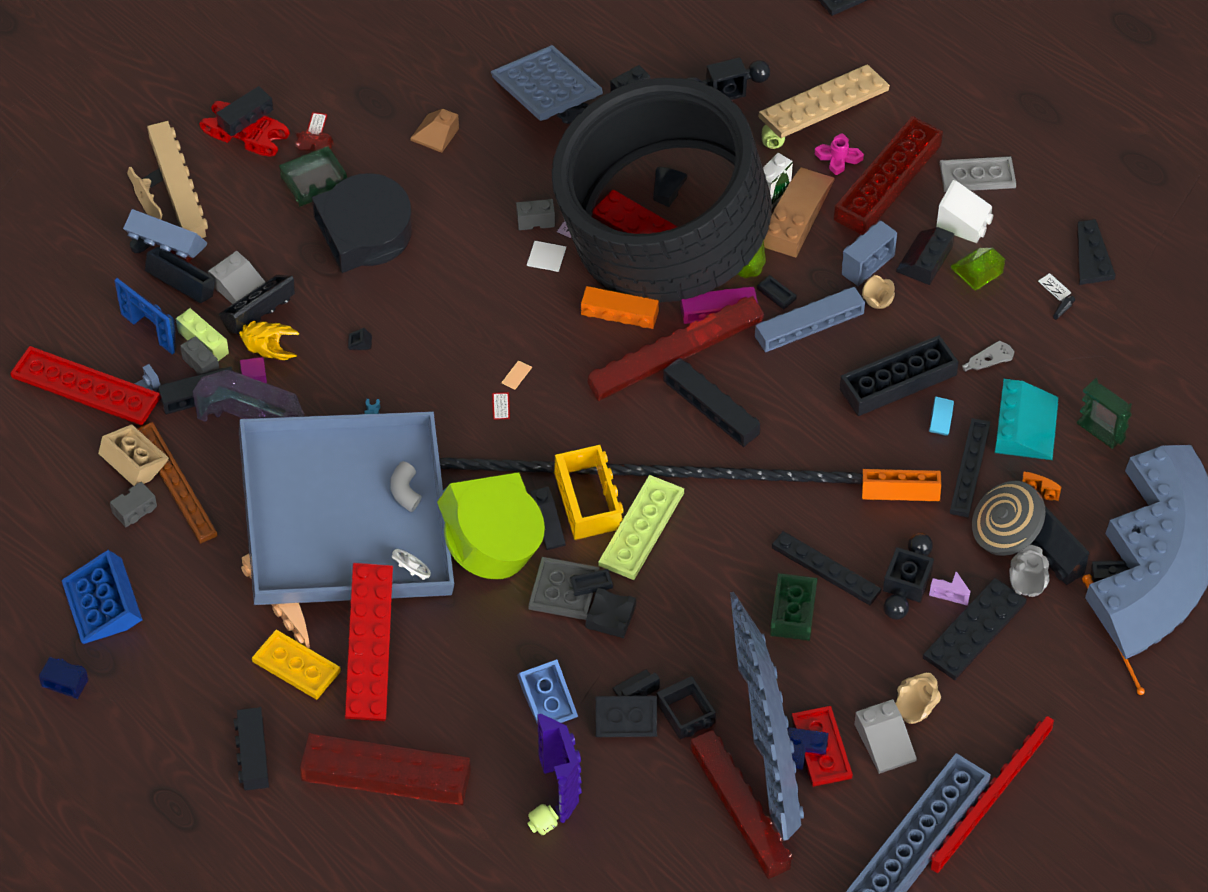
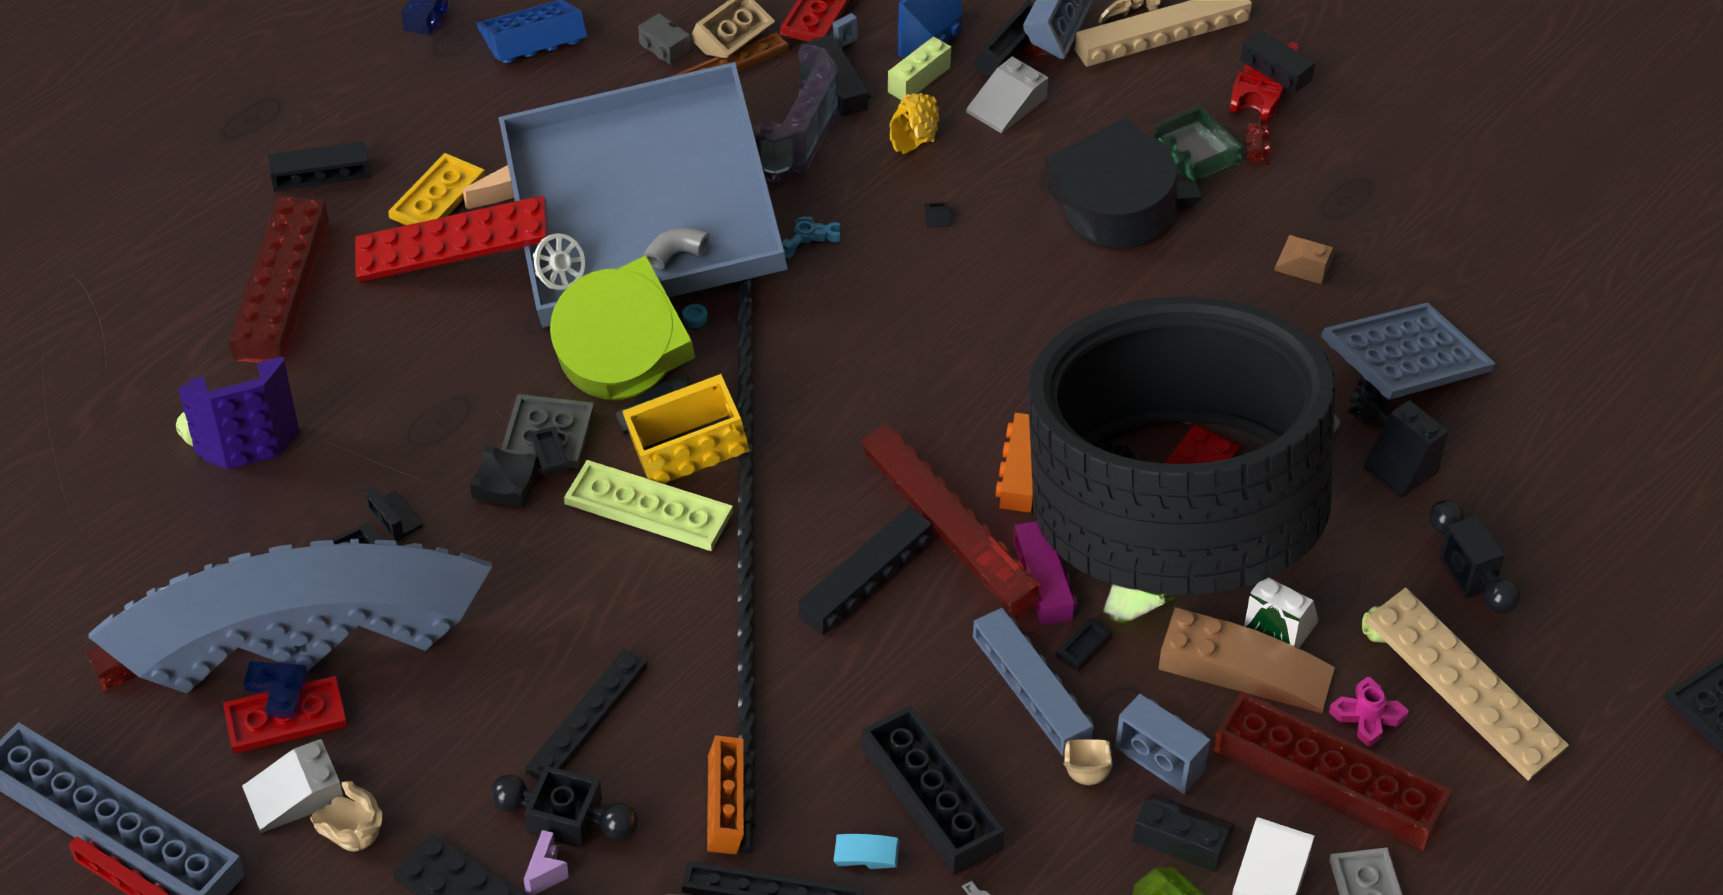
camera: 85 degrees right, 5 degrees down
(199, 356) = (875, 70): dark grey brick -> none
(254, 369) = (873, 121): magenta piece -> none
(258, 303) = (970, 106): black slope -> none
(317, 123) = (1294, 147): white sticker -> none
(501, 406) = (847, 356): white sticker -> none
(516, 375) = (900, 369): light nougat sticker -> none
(547, 692) = (382, 420): medium blue slope -> none
(626, 716) = (340, 499): black tile -> none
(793, 607) = (507, 670): clear green brick -> none

